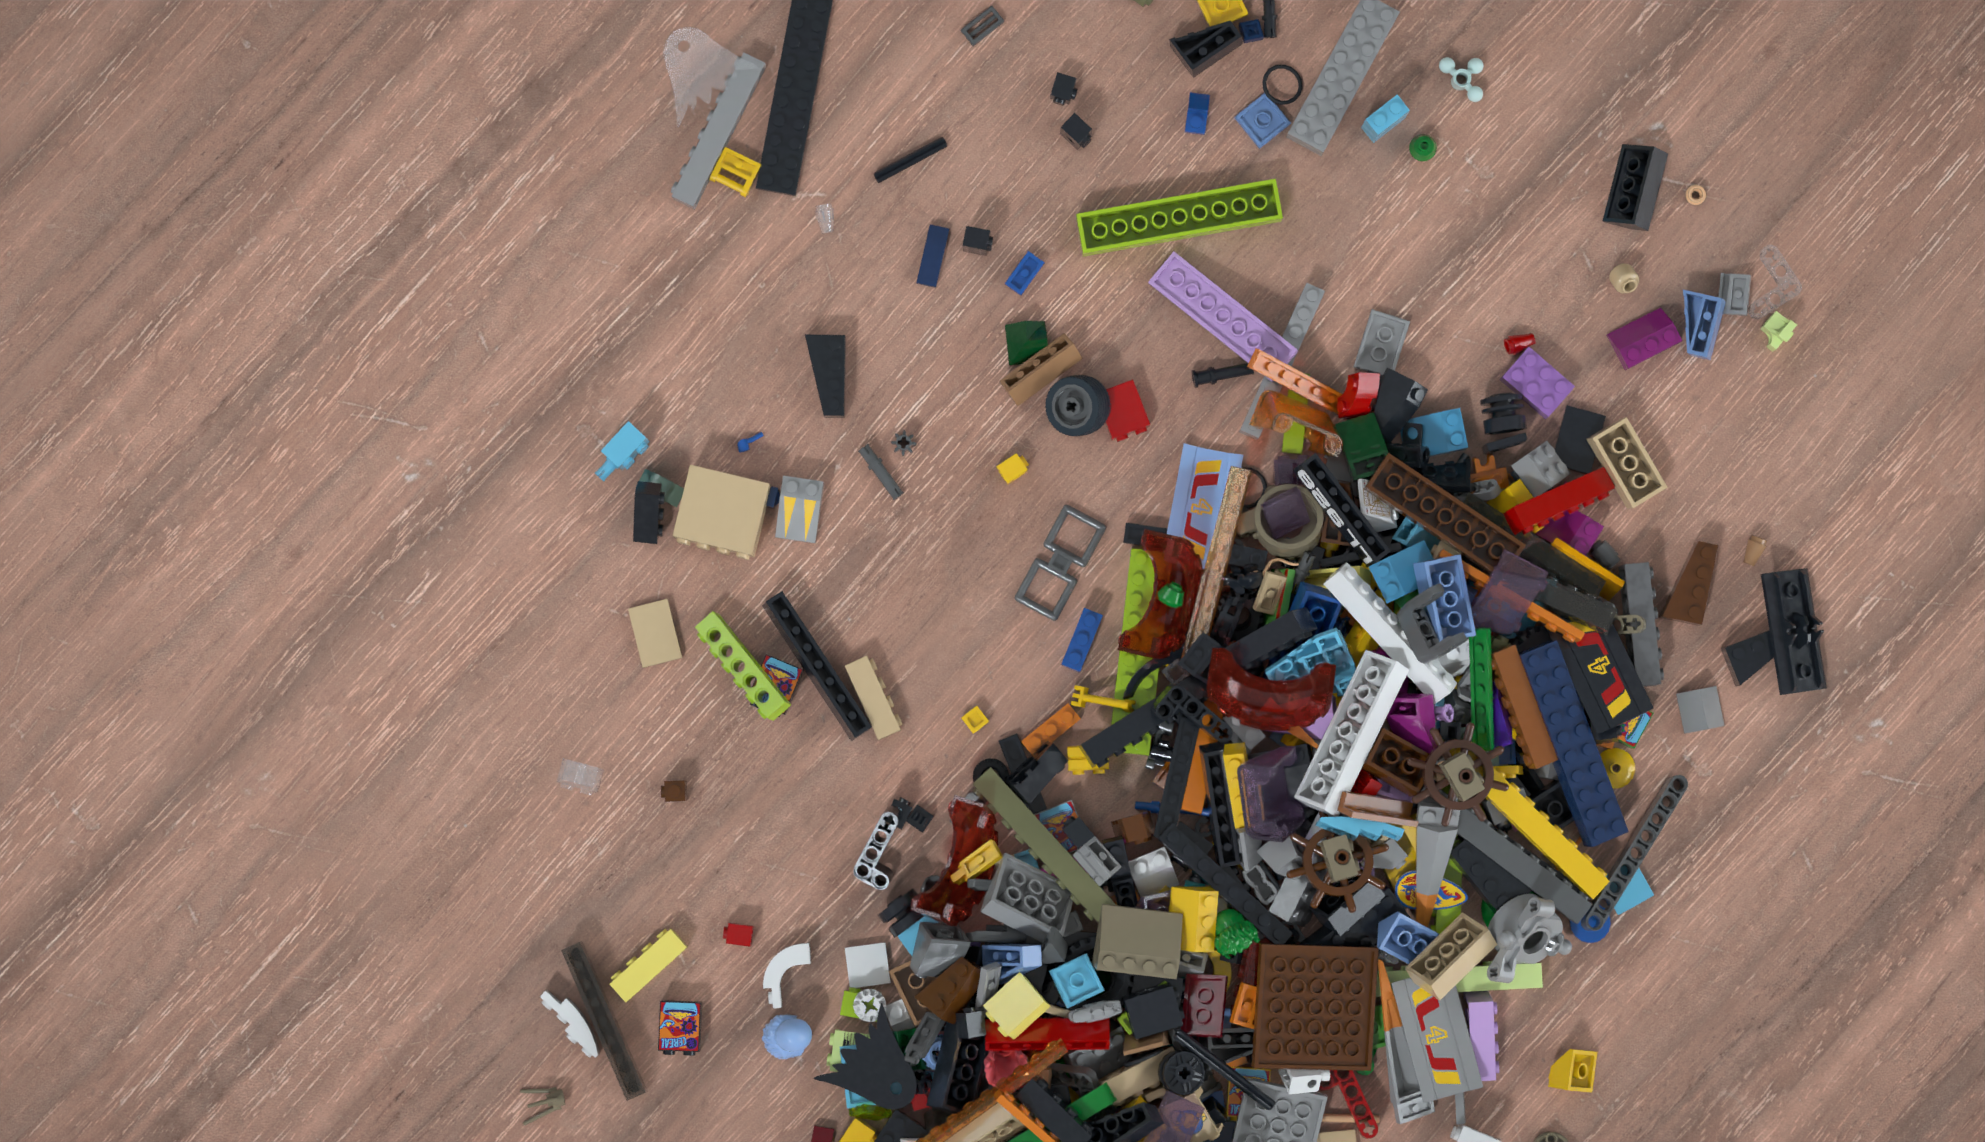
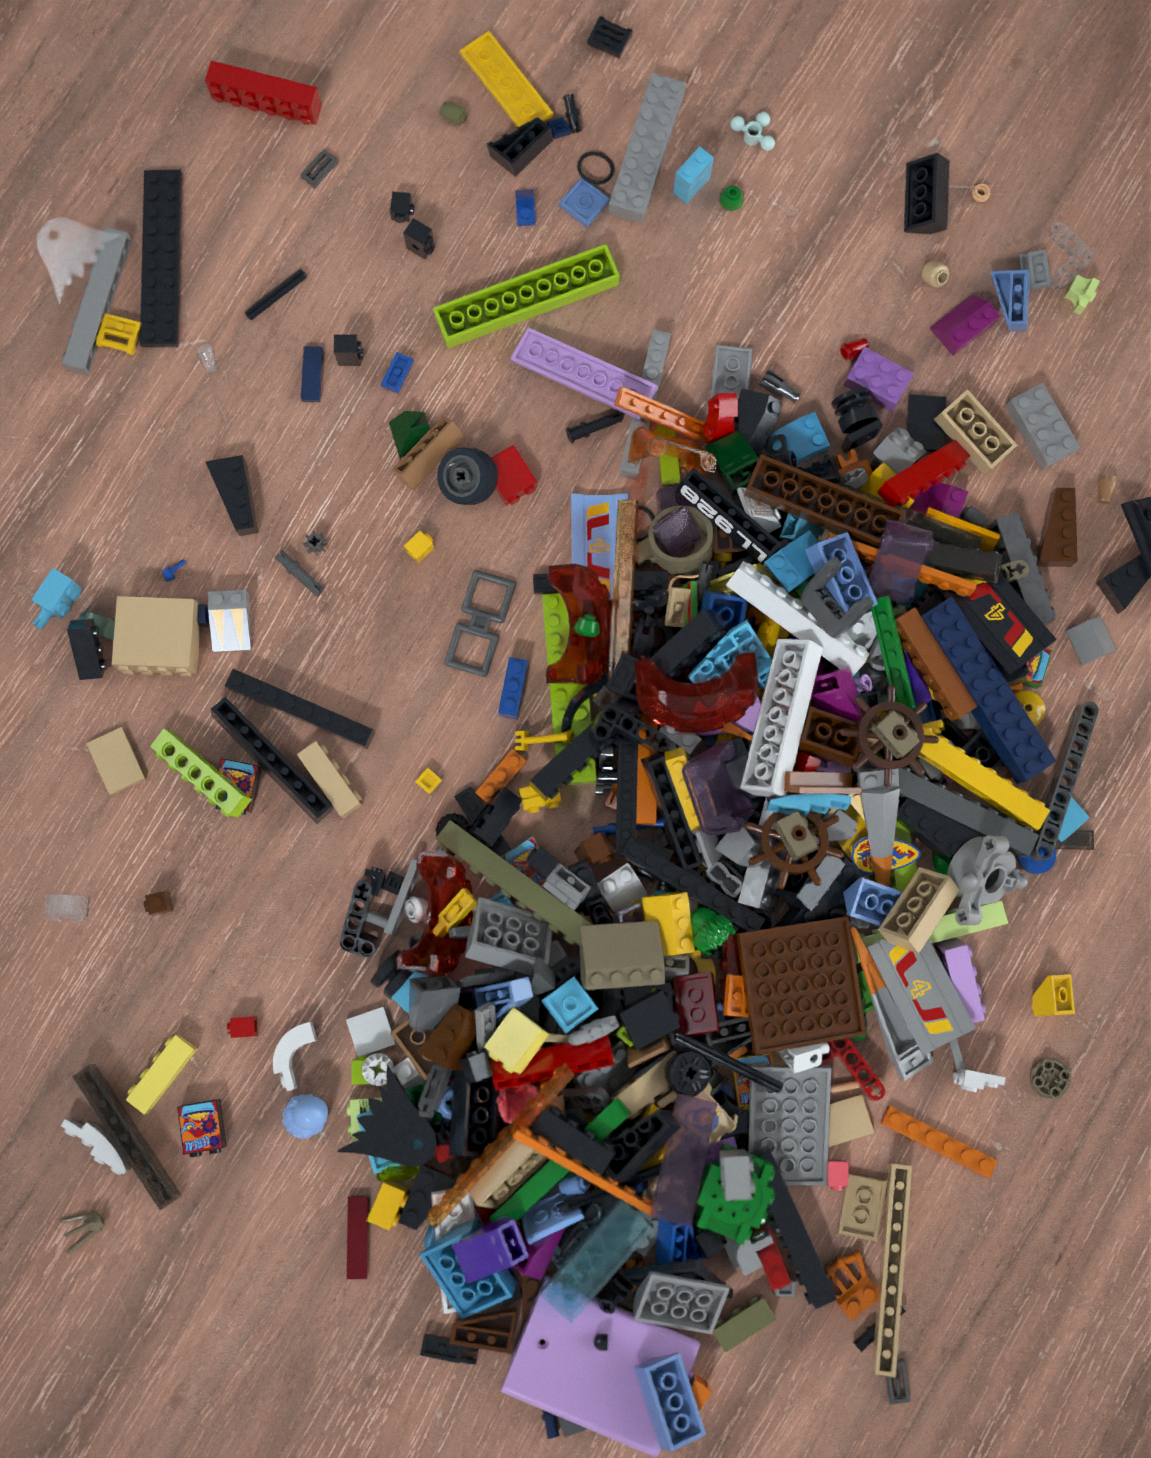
camera: 15 degrees left, 5 degrees down
(856, 617) = (300, 709): none -> black brick
(910, 859) = (393, 922): none -> light grey piece
(937, 849) = (416, 909): none -> white cone
(1431, 369) = (778, 386): none -> dark grey arm
(1635, 916) = (1078, 841): none -> clear smoke tile
(1700, 470) = (1042, 427): none -> light grey brick

